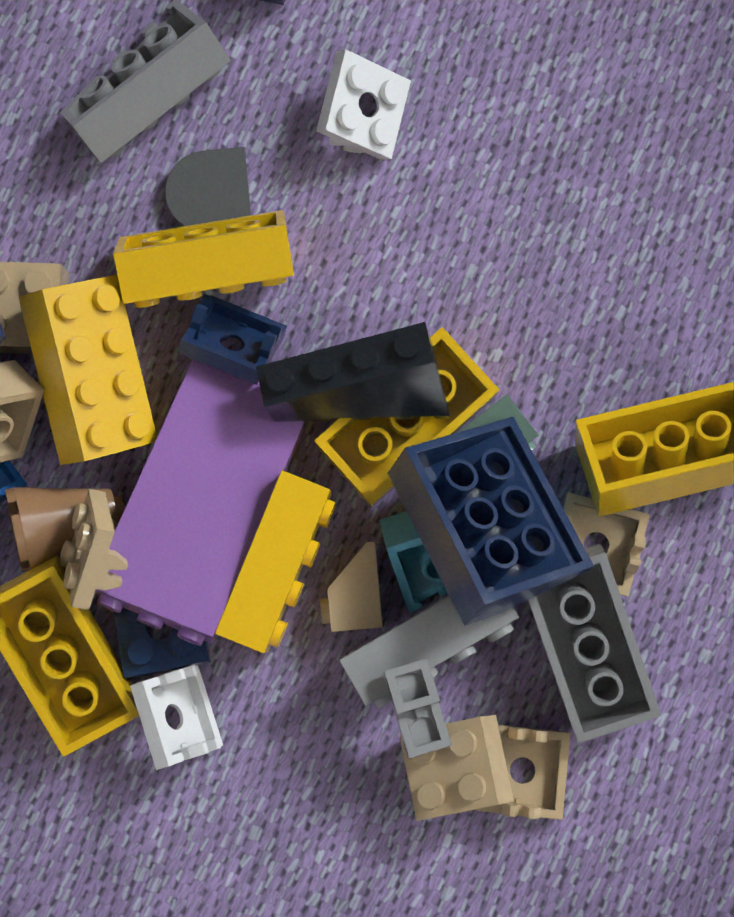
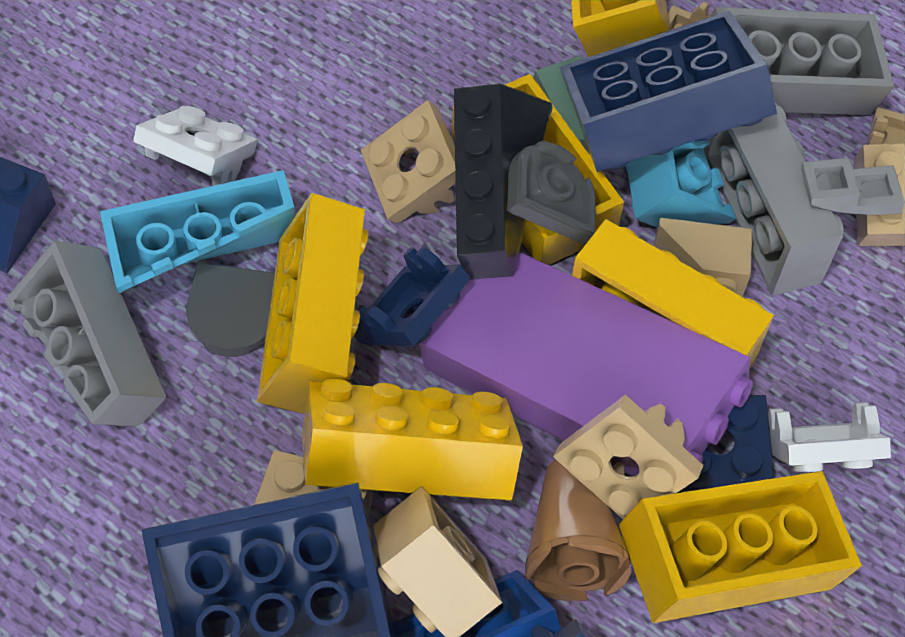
camera: 80 degrees left, 25 degrees down
(252, 122) = (195, 226): none -> medium azure wedge
(349, 435) = (552, 191): none -> dark grey tile
(414, 304) = (434, 170): none -> tan piece

